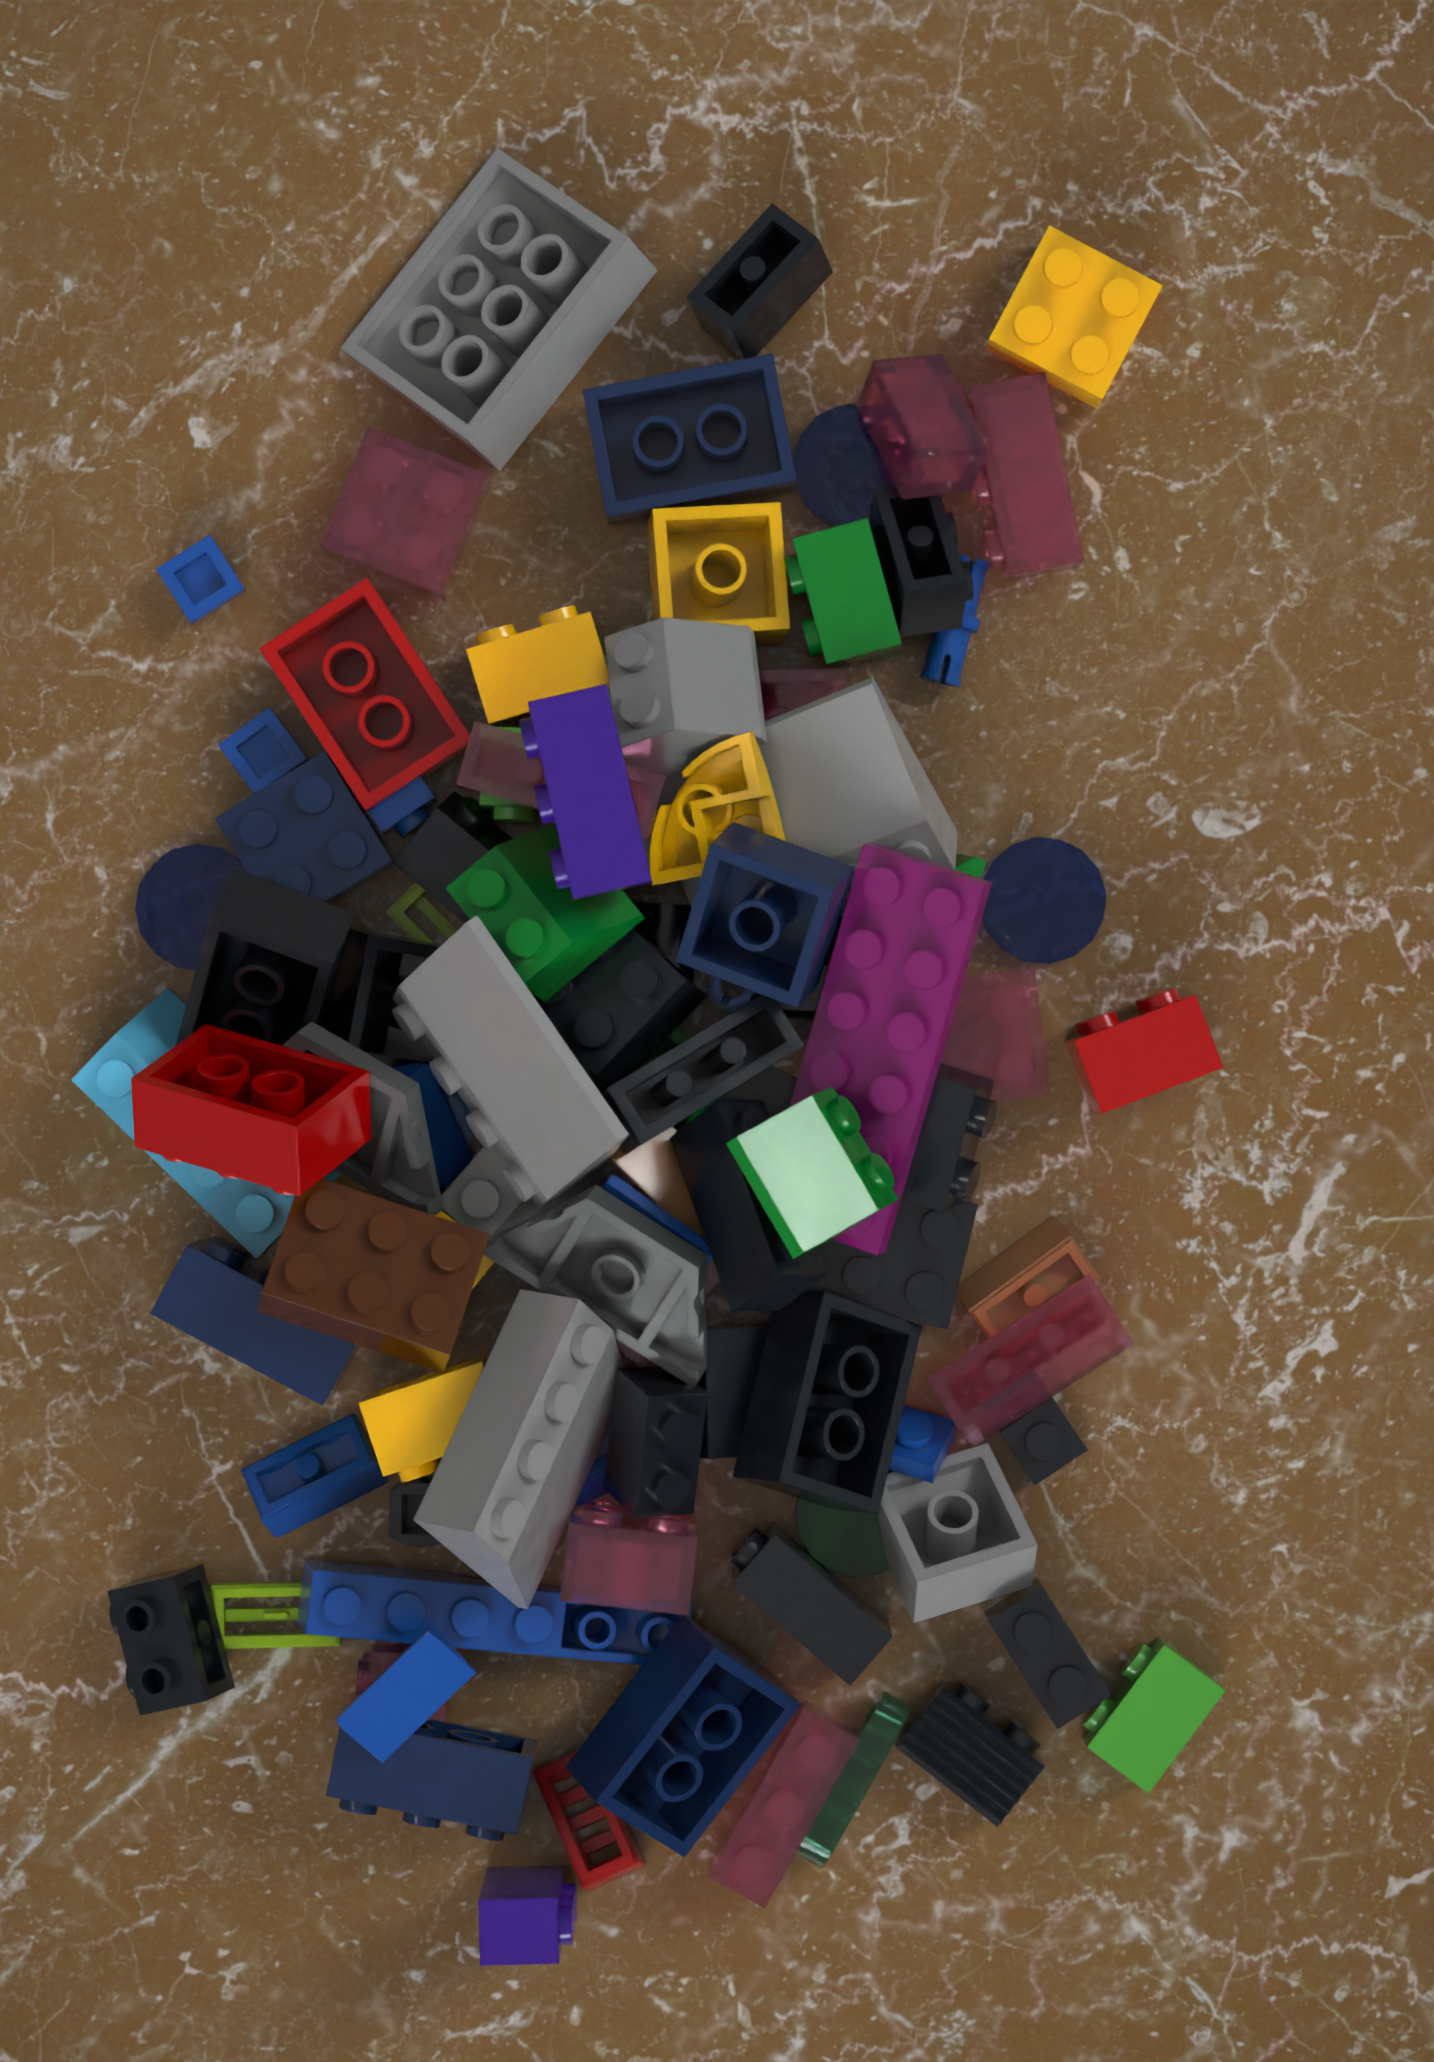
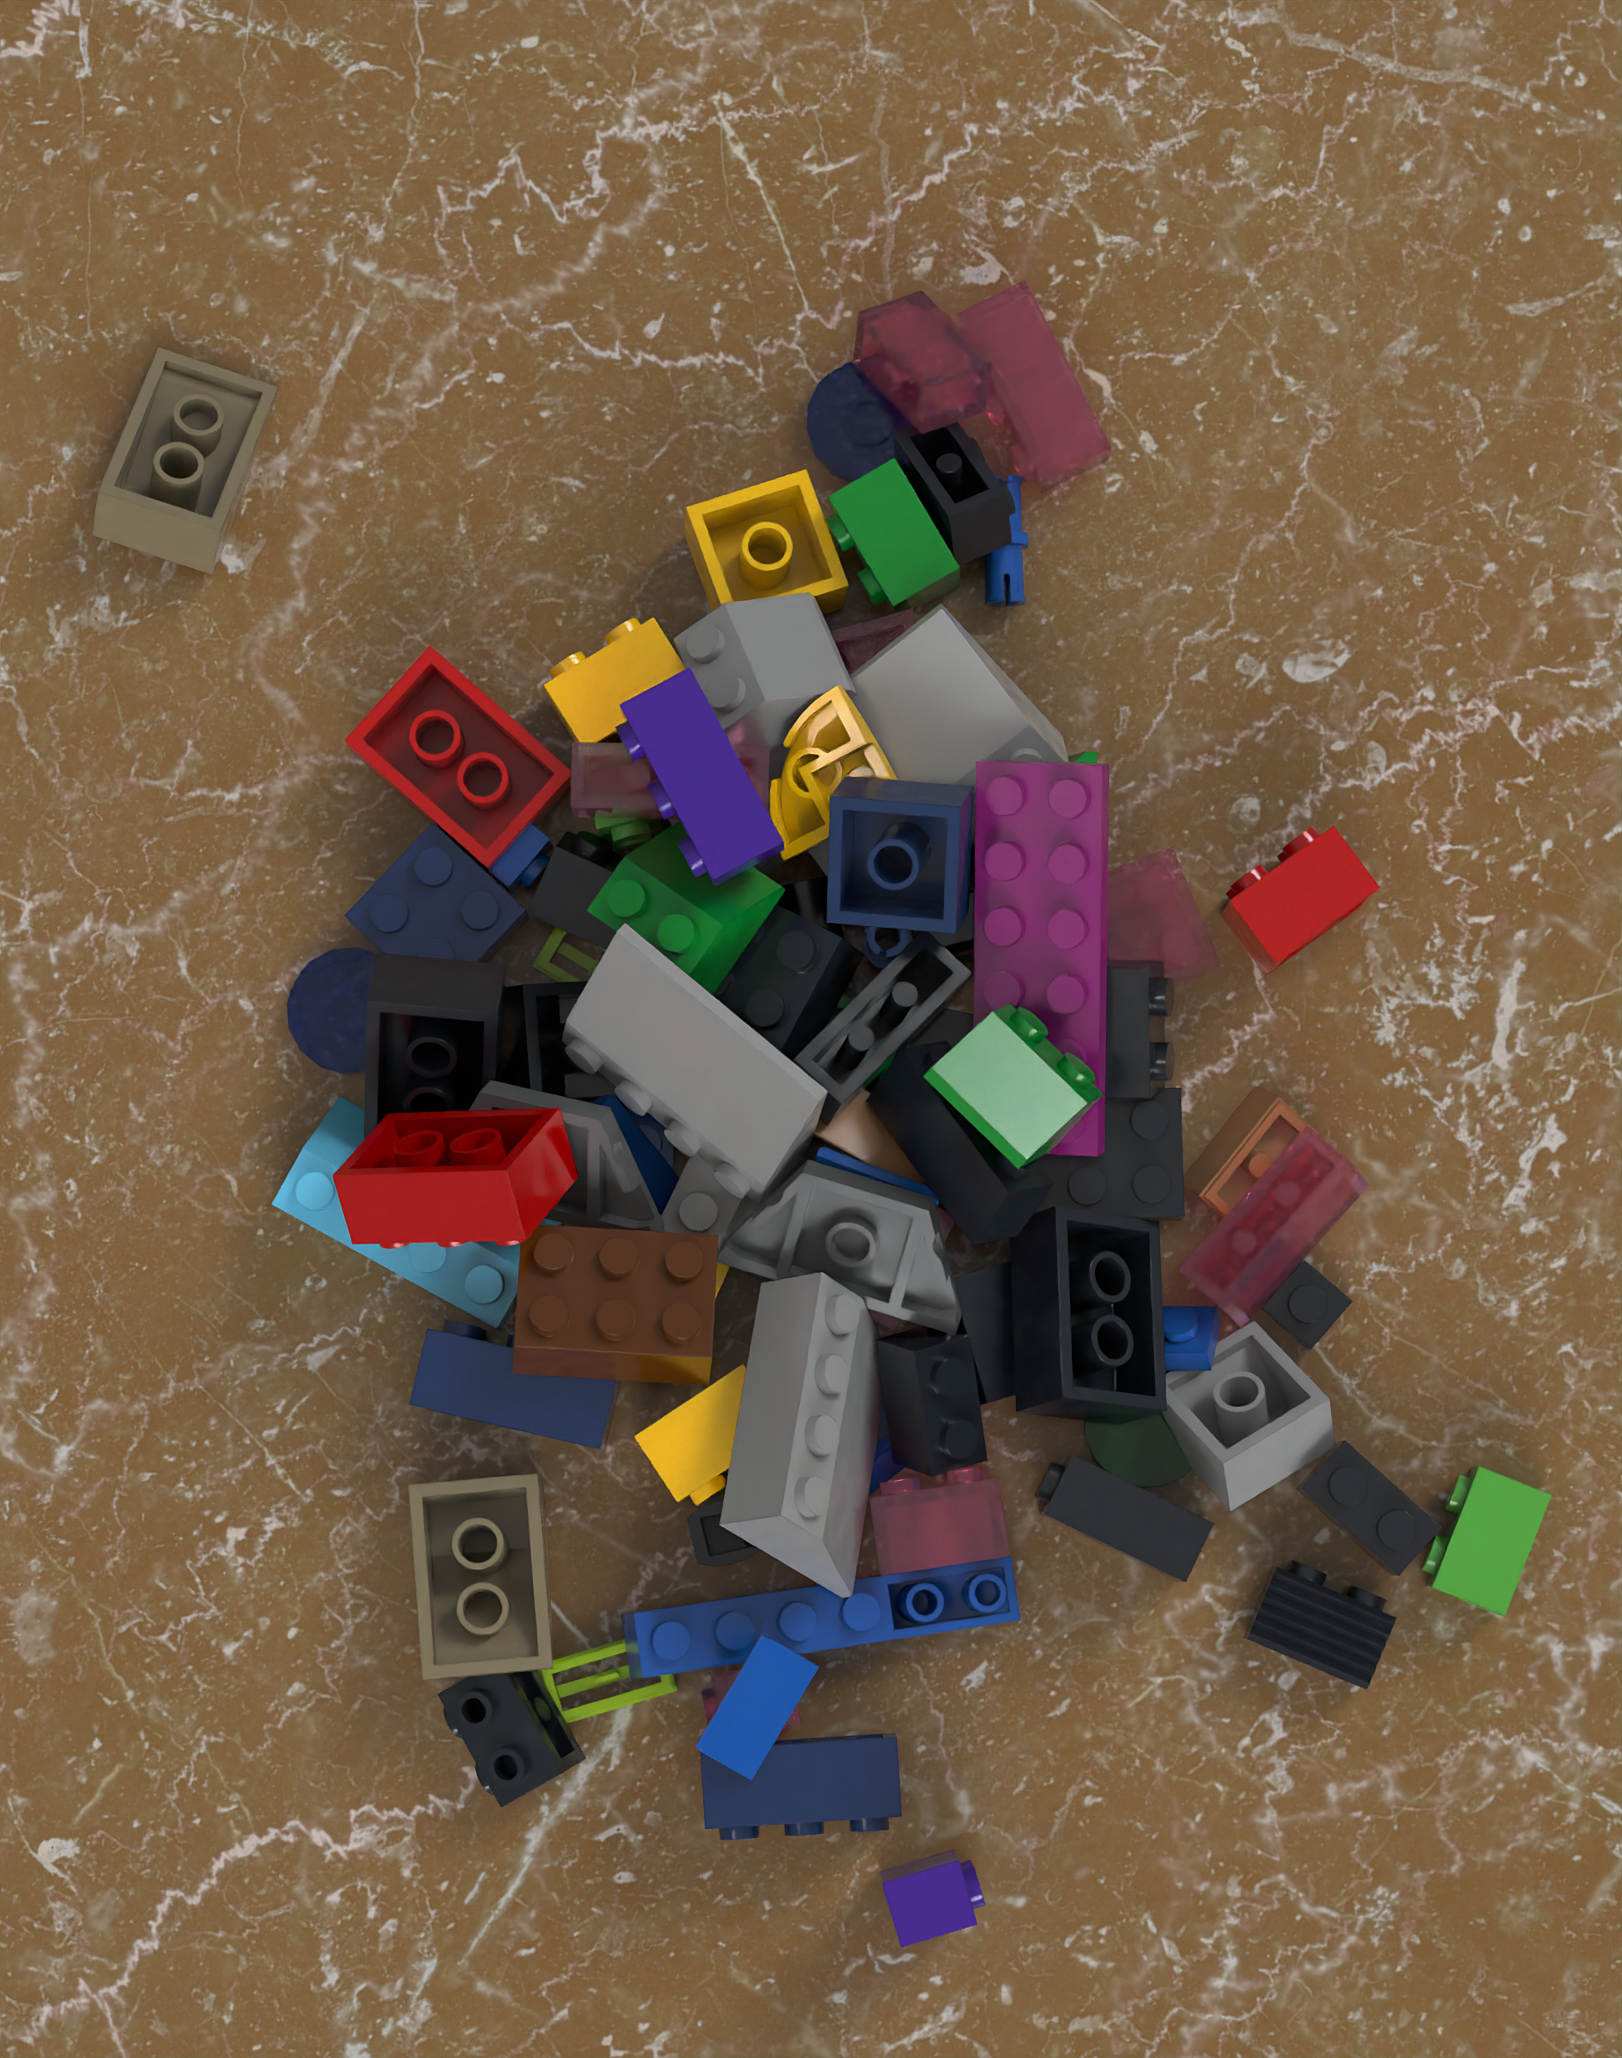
camera: 15 degrees left, 5 degrees down
(178, 325) = (183, 461): none -> dark tan slope
(179, 1493) = (482, 1576): none -> dark tan slope
(201, 579) = (269, 695): blue plate -> none
(263, 750) = (371, 842): blue plate -> none
(314, 1476) = (609, 1532): blue slope -> none
(406, 513) = (450, 579): clear pink brick -> none
(500, 308) = (488, 361): light grey slope -> none
(589, 1876) = (1003, 1837): red slope -> none
(682, 1736) = (1036, 1682): dark blue brick -> none
(690, 438) = (703, 433): dark blue brick -> none
(760, 283) = (730, 271): black brick -> none
(783, 1803) = (1152, 1725): clear pink brick -> none
(876, 1740) = (1213, 1684): clear green beam -> none
(1043, 900) = (1163, 785): clear blue tile -> none
(1073, 316) = (1037, 222): yellow brick -> none

